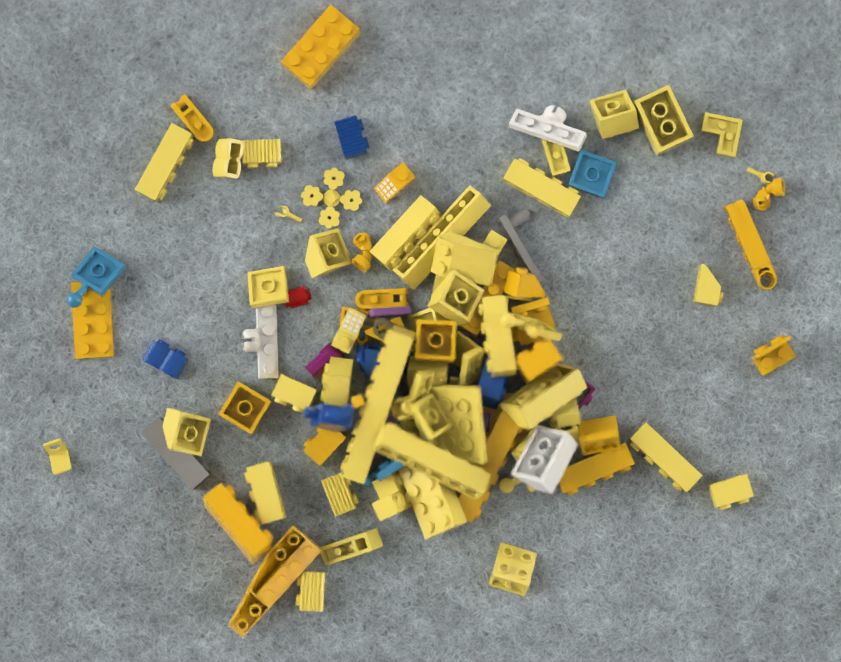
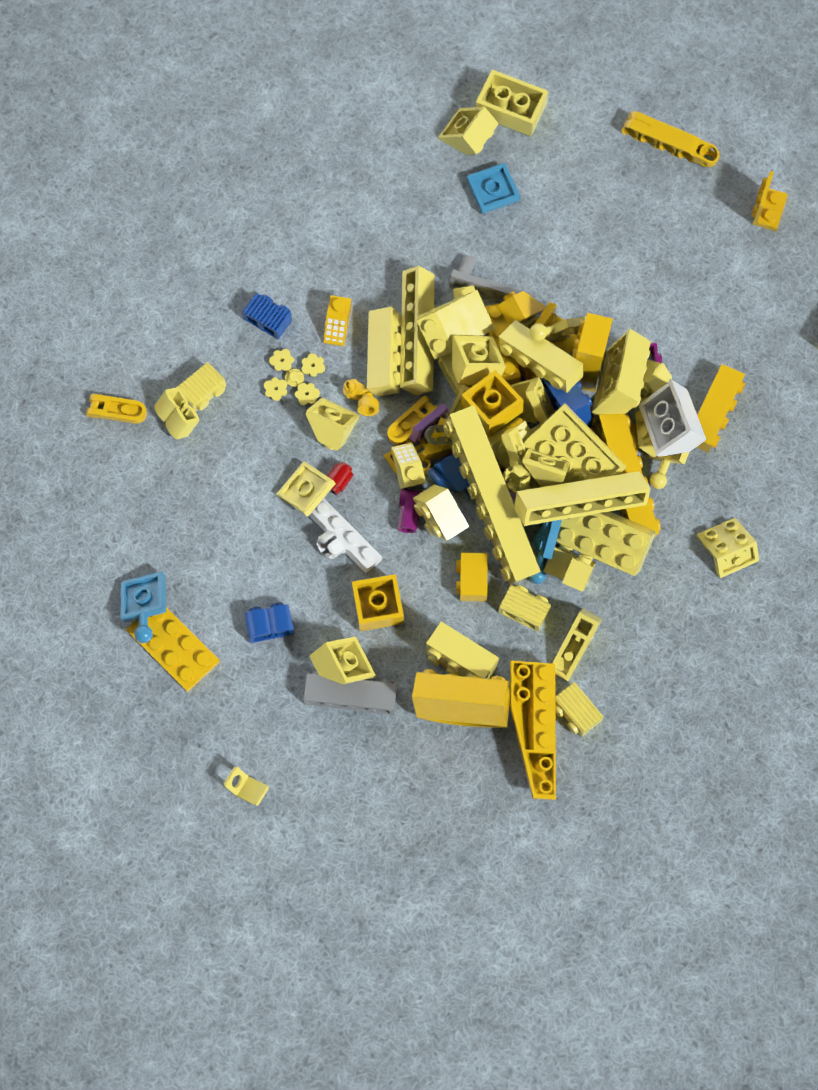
camera: 40 degrees left, 15 degrees down
(164, 162) = (122, 462): light yellow brick -> none
(286, 213) = (264, 418): light yellow hand -> none
(294, 393) = (410, 553): light yellow brick -> none
(320, 47) = (177, 266): yellow brick -> none
(333, 417) = (464, 535): blue torso -> none
(541, 188) = (463, 229): light yellow brick -> none
(548, 127) = (425, 177): white plate -> none
(556, 158) = (450, 197): light yellow plate -> none
(599, 435) = (698, 374): yellow bracket -> none
(665, 457) = (764, 352): light yellow brick -> none
(707, 288) = (668, 198): light yellow slope -> none
(727, 129) = (568, 73): light yellow plate -> none
(761, 175) = (630, 86): light yellow hand -> none
(763, 199) = (648, 84): yellow arm -> none

